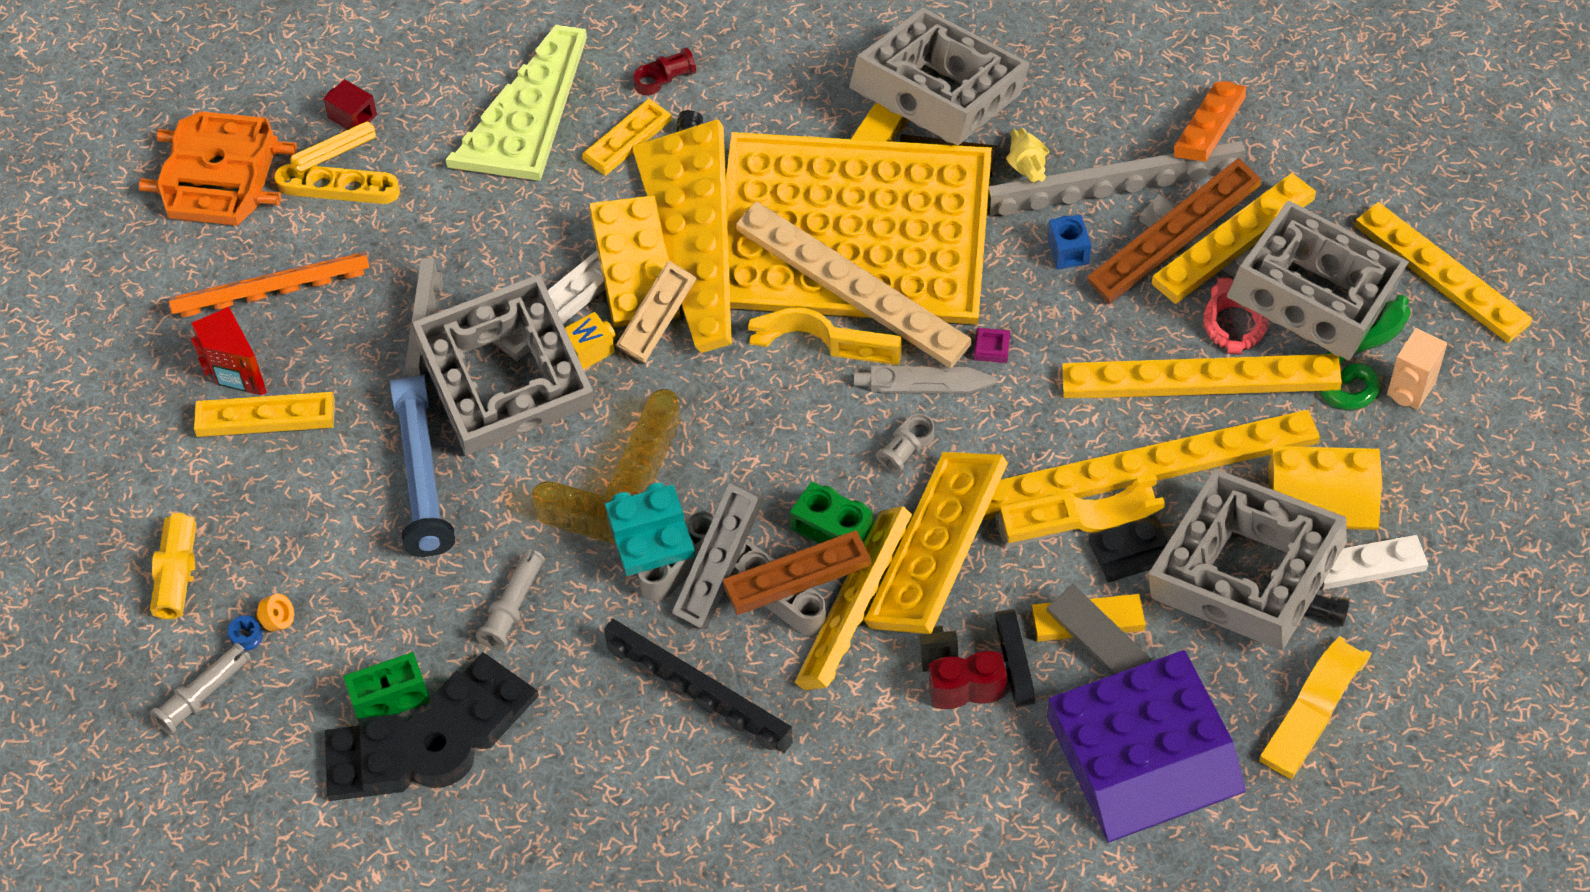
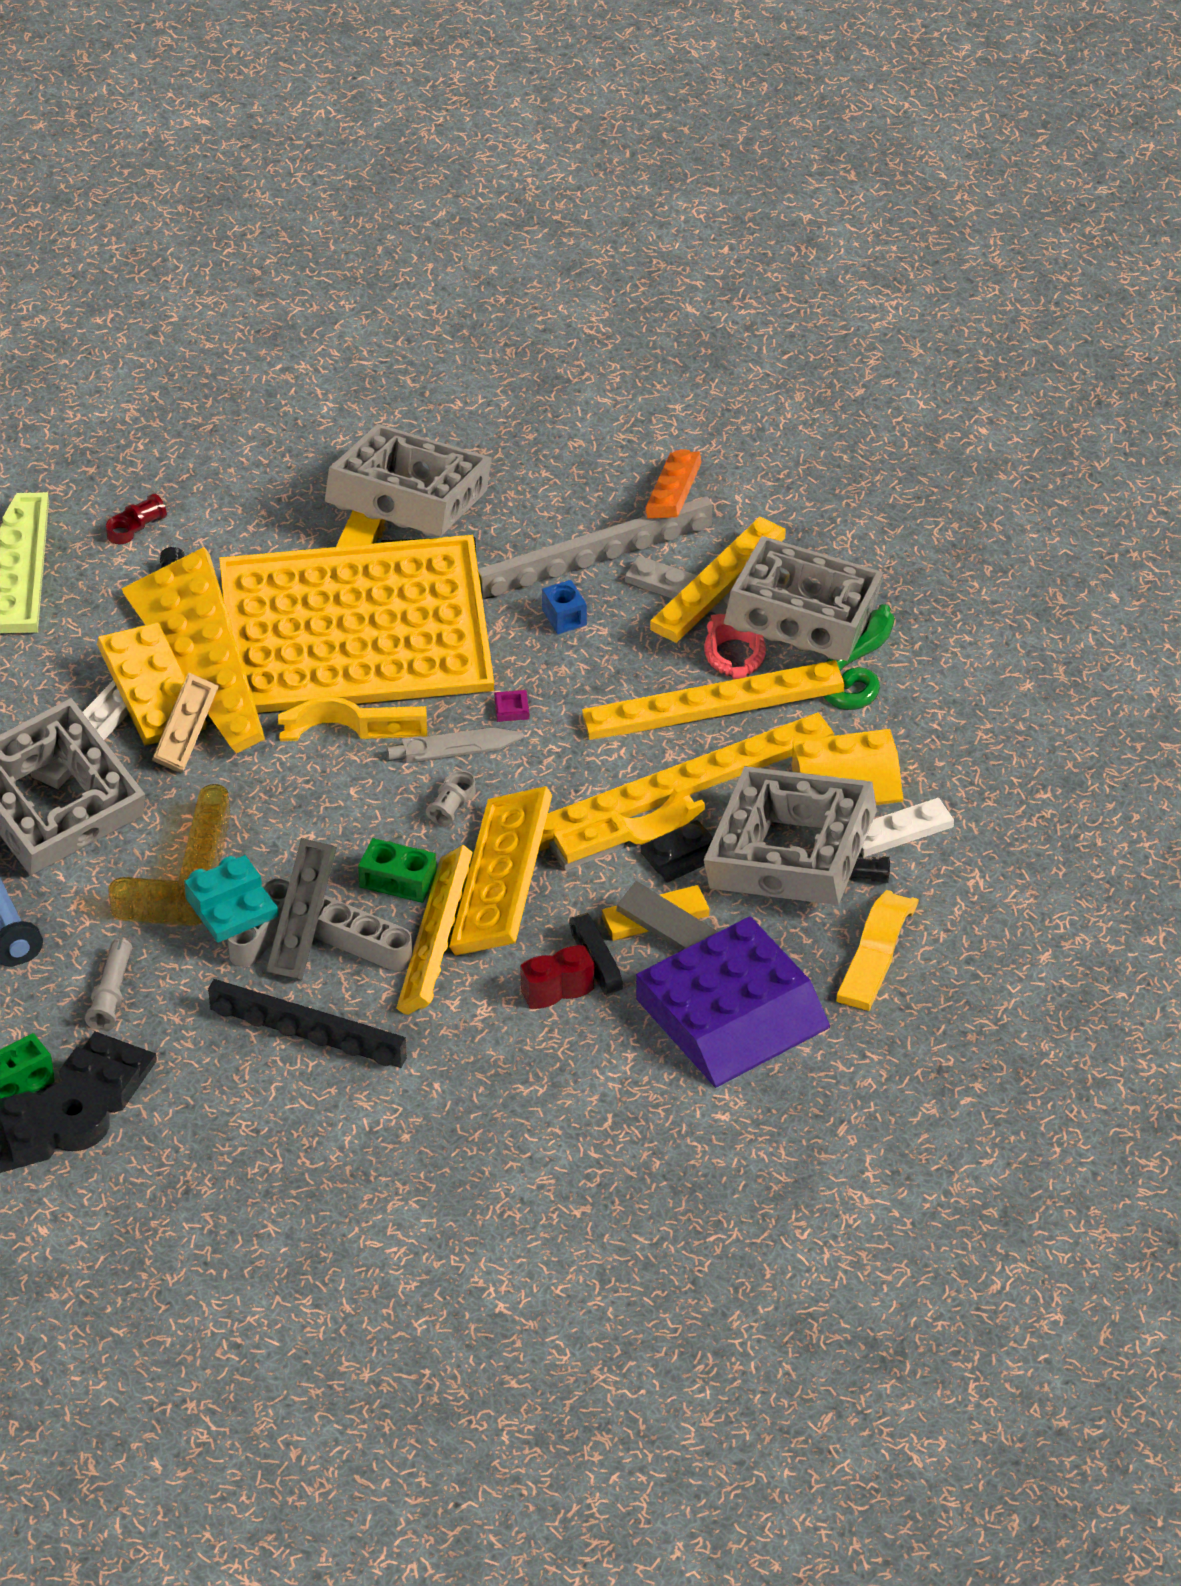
camera: 15 degrees left, 10 degrees down
(591, 339) = (132, 753): yellow brick -> none
(631, 131) = (108, 585): yellow tile -> none
(796, 572) = (379, 910): dark orange plate -> none
(854, 284) = (368, 670): tan plate -> none
(937, 646) = (521, 952): pearl dark grey tile -> none
(1027, 155) = (507, 538): light yellow axle -> none
(1174, 230) = (660, 581): dark orange plate -> none
(1416, 369) = (909, 660): light nougat brick -> none
(1444, 272) = (920, 583): yellow plate -> none

